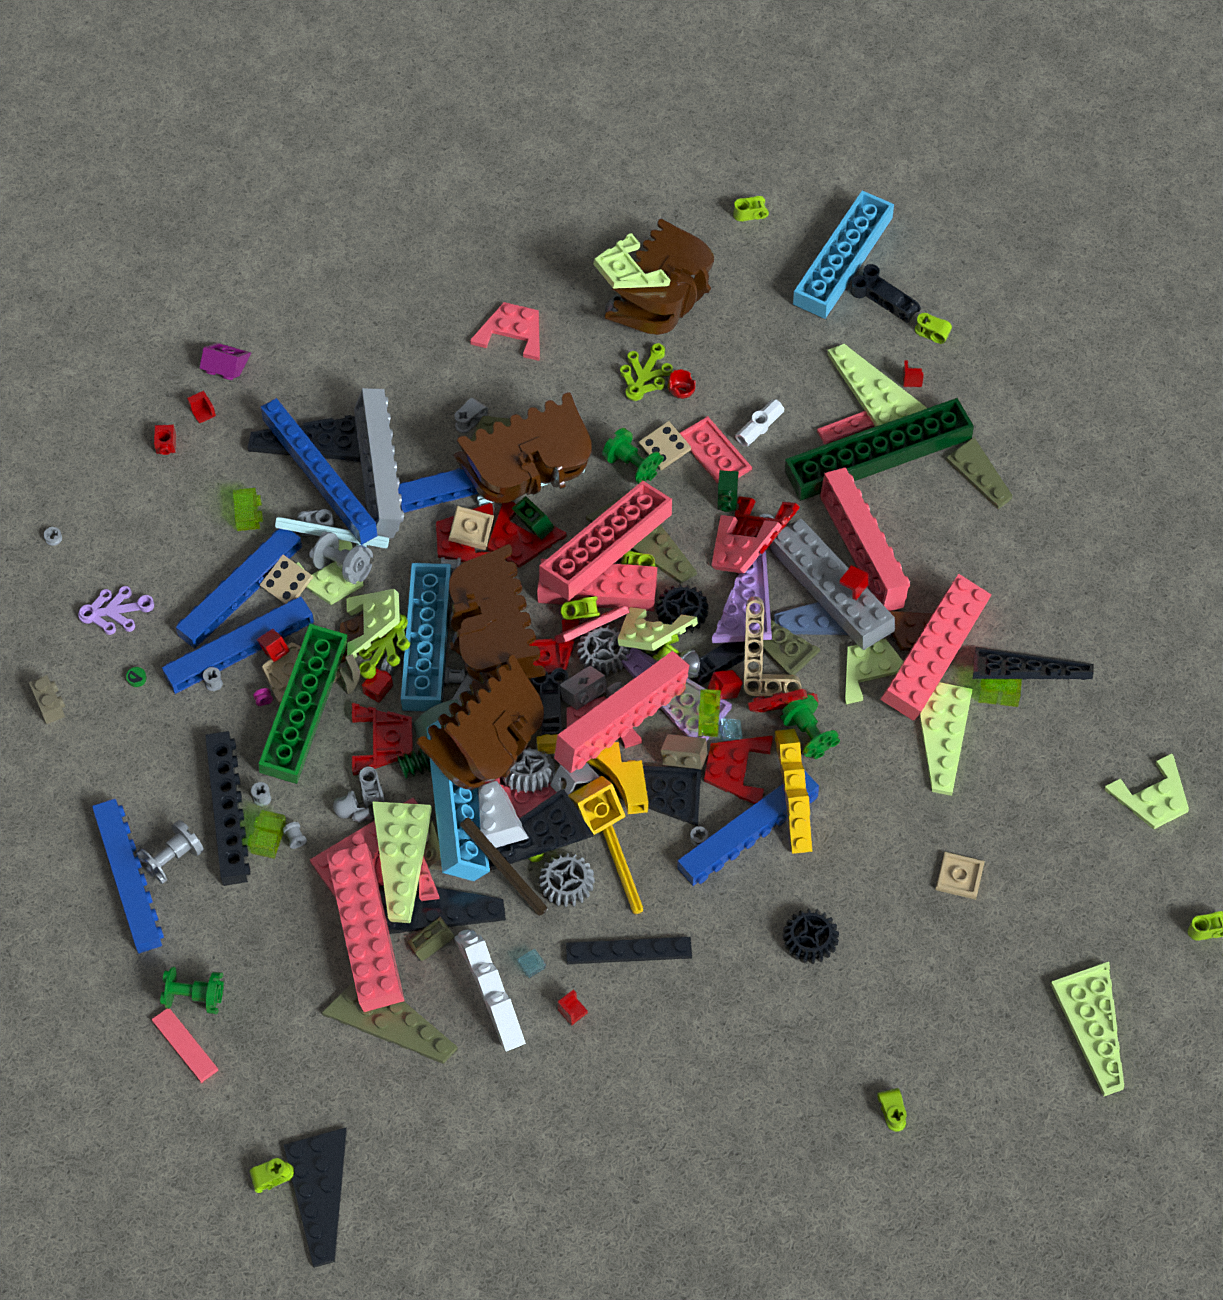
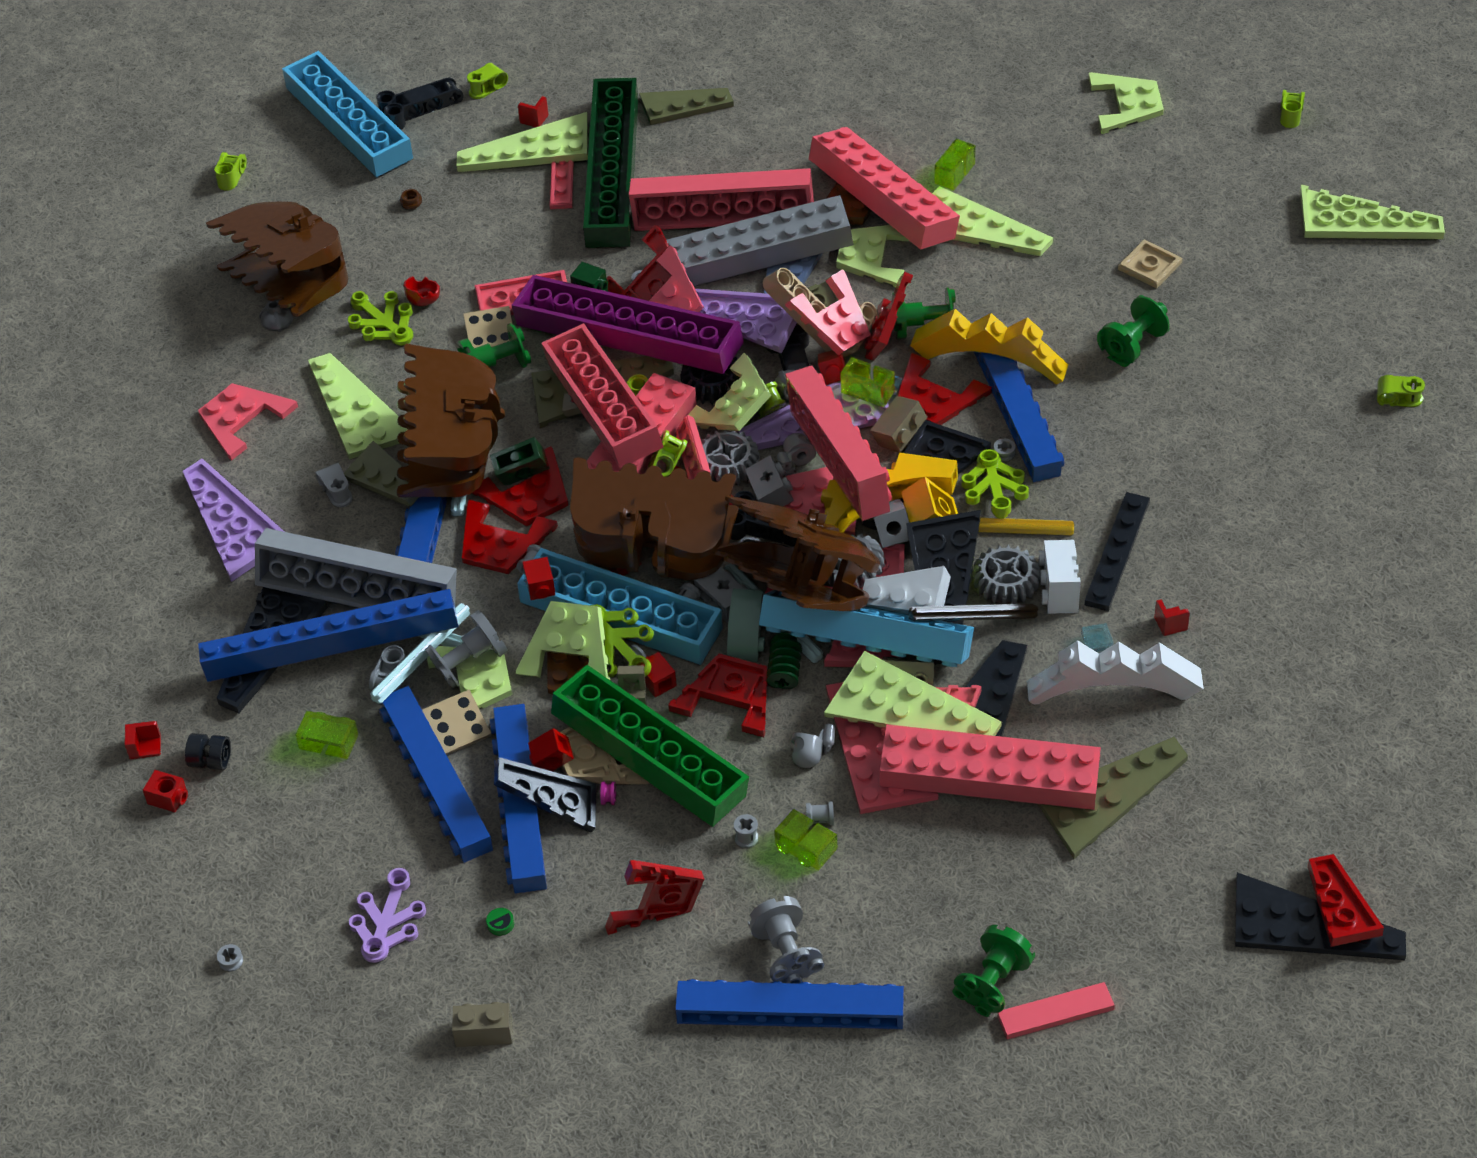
camera: 65 degrees left, 10 degrees down
(174, 755) = (667, 894): none -> red wing
(204, 447) = (205, 750): none -> black wheel
(212, 678) = (557, 833): light grey bush -> none
(217, 744) = (758, 880): black brick -> none
(224, 360) = (90, 697): magenta slope -> none
(241, 662) = (551, 791): none -> black wing
(270, 1174) = (1274, 967): lime piece -> none
(330, 1209) = (1341, 904): none -> red wing
(371, 789) = (792, 718): light grey piece -> none
(412, 369) = (229, 517): none -> lavender wing
(413, 573) = (539, 578): none -> red brick
(431, 939) = (1022, 717): olive slope -> none
(471, 528) = (495, 523): tan tile -> none
(560, 380) = (354, 407): none -> yellowish green wing
(578, 916) = (1060, 576): none -> white wedge
(623, 271) = (268, 254): yellowish green wing -> none
(657, 839) = (991, 463): none -> lime plant
(695, 530) = (630, 323): none -> magenta brick
(754, 670) = (839, 324): none -> coral wing
(759, 423) = (513, 244): white piece -> none
(778, 332) = (410, 199): none -> reddish brown plate
(824, 928) = (1171, 393): black gear -> none
(854, 882) = (1123, 340): none -> green piece
(855, 580) = (782, 203): red panel -> none
(1012, 665) = (937, 140): black wing -> none

